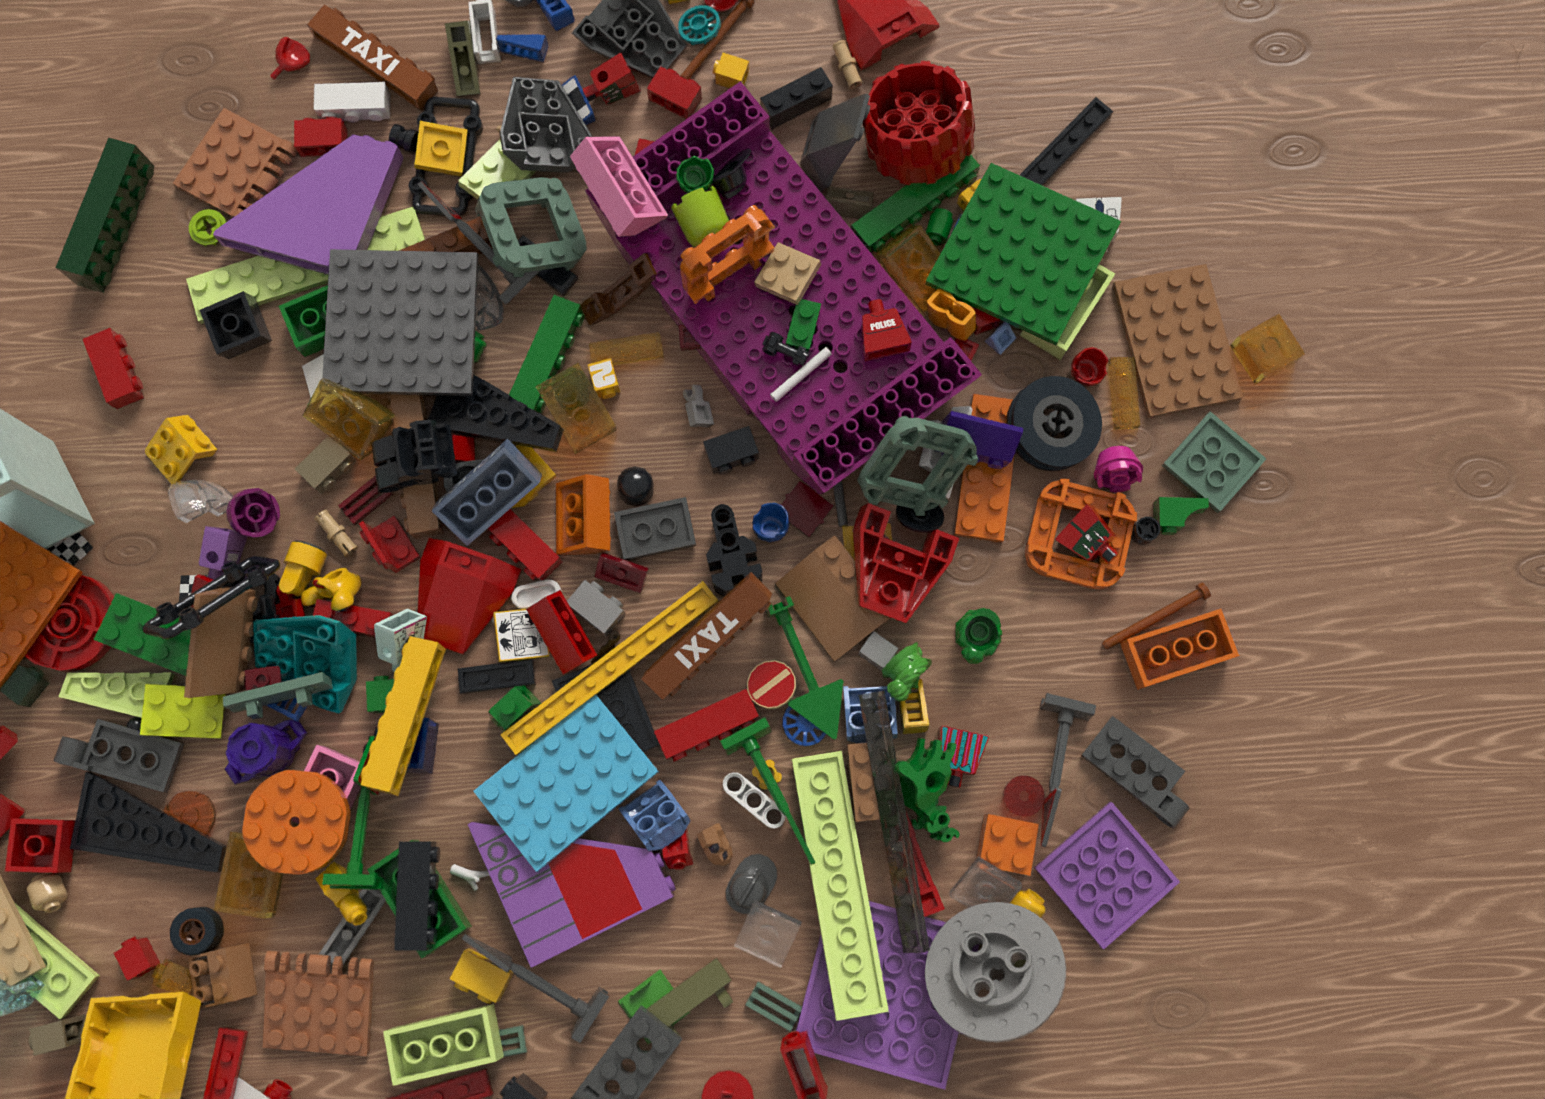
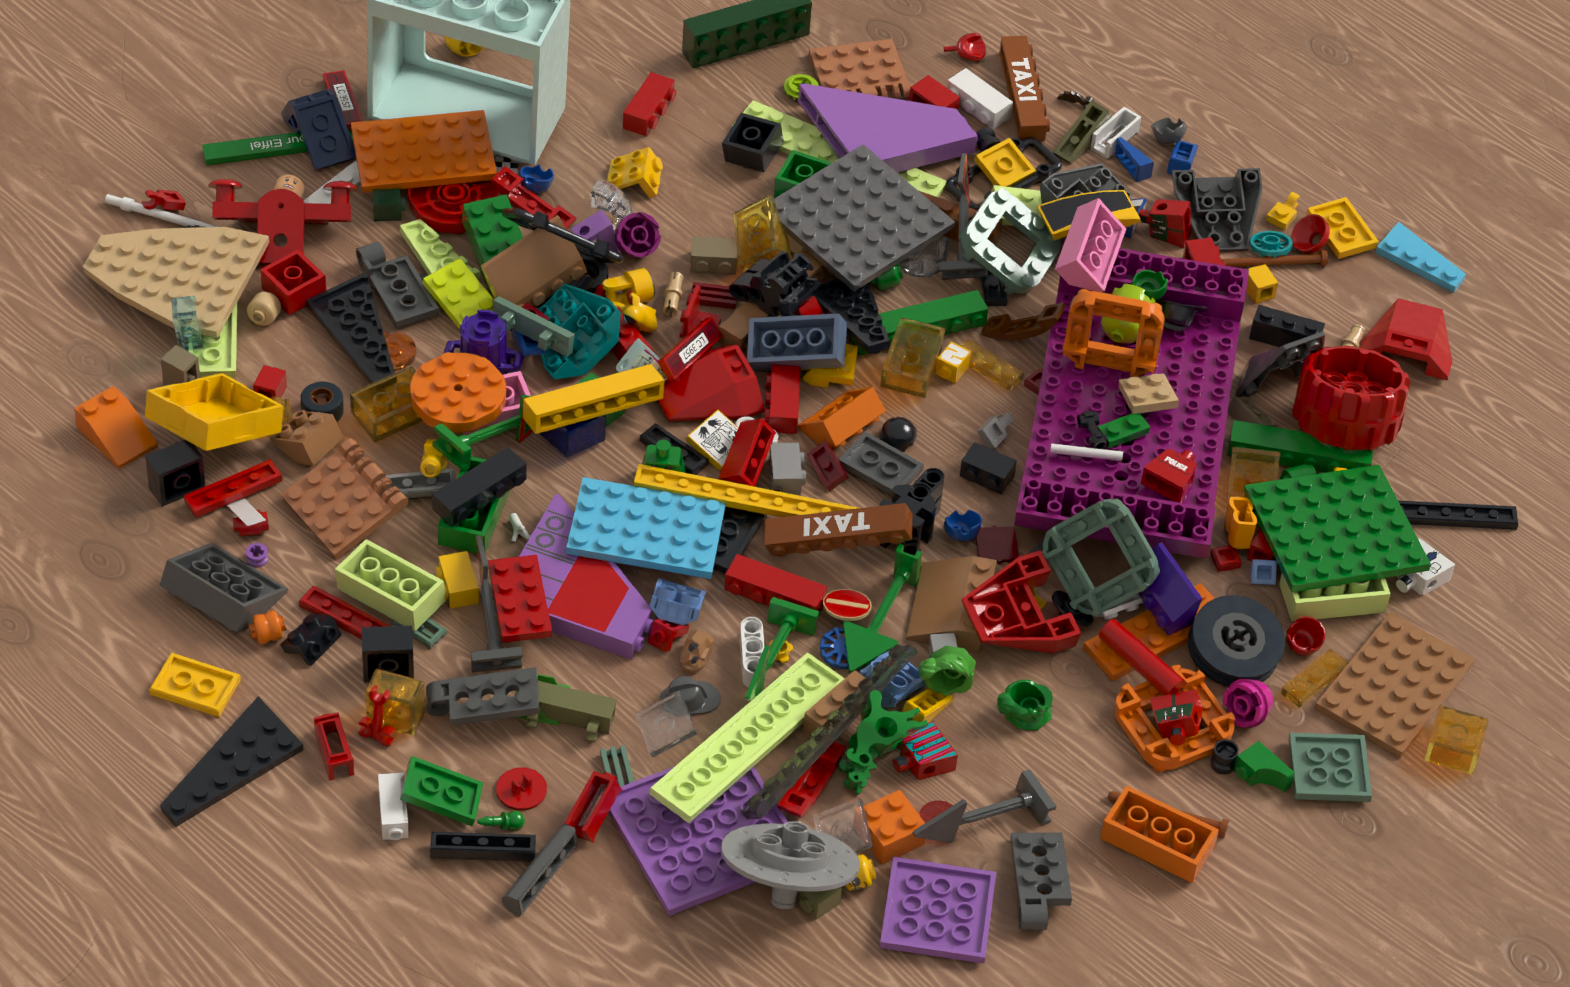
camera: 45 degrees right, 30 degrees down
(110, 536) = (536, 179): none -> blue hair
(133, 563) = (522, 198): none -> red slope
(414, 581) = (690, 348): none -> tile
(419, 25) = (1075, 98): none -> dark brown piece
(552, 952) = (519, 598): none -> red plate
(558, 137) = (1060, 212): none -> black slope
(1017, 512) = (1141, 658): none -> red brick

